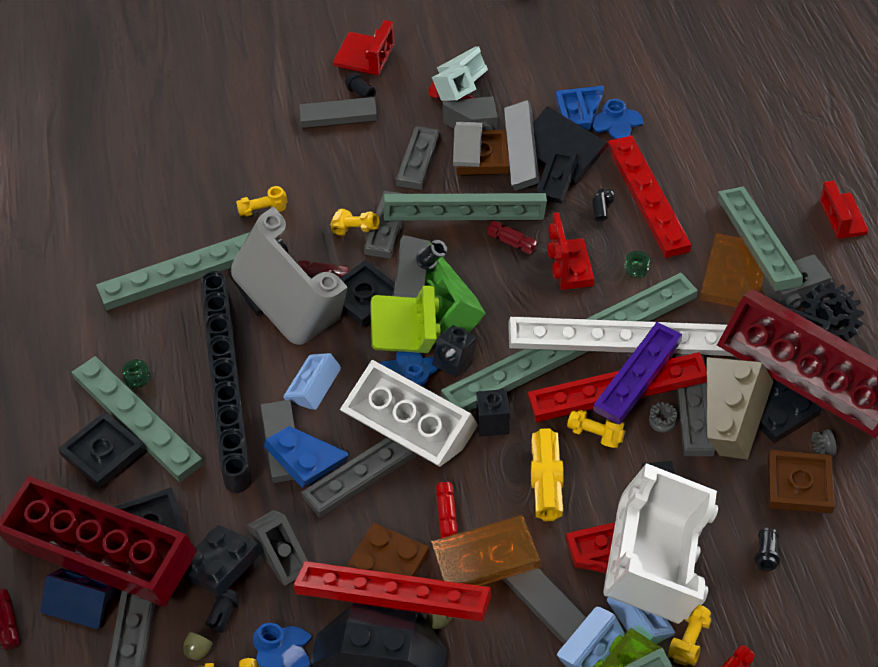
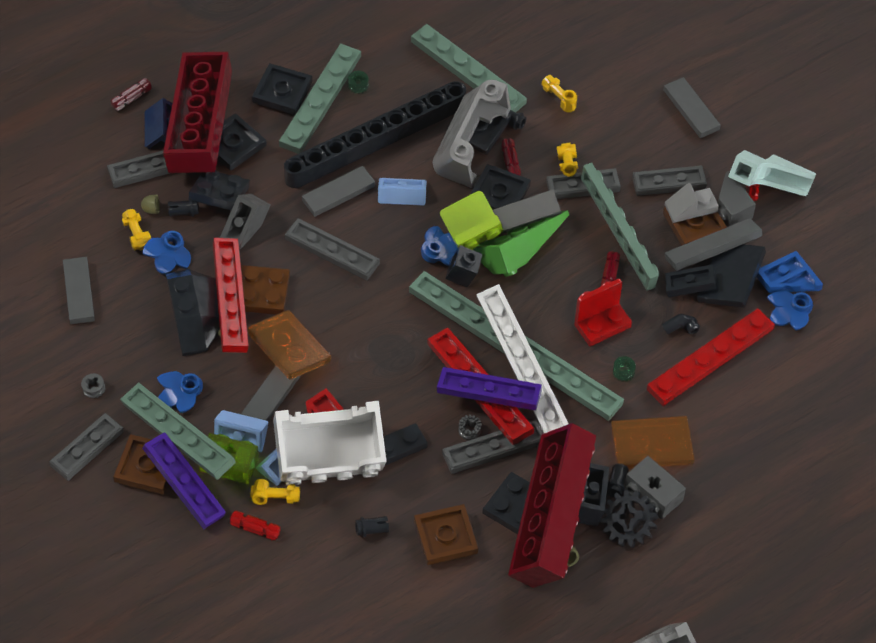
camera: 65 degrees right, 5 degrees up
(304, 455) = (326, 207): blue wing -> none
(355, 83) = (730, 107): black pin -> none
(366, 52) = (773, 100): red bracket -> none
(409, 414) = (388, 257): white slope -> none
(428, 257) = (534, 218): black pin -> none
(446, 509) = (321, 311): red axle -> none
(492, 412) = (417, 310): black brick -> none
(547, 475) = (377, 363): yellow piece -> none
(611, 432) = (430, 395): yellow bar -> none
(735, 404) = (490, 465): dark tan wedge -> none
(760, 239) = (683, 442): sand green plate -> none
(824, 443) = (489, 543): dark grey bush -> none
(842, 212) = (764, 508): red panel -> none

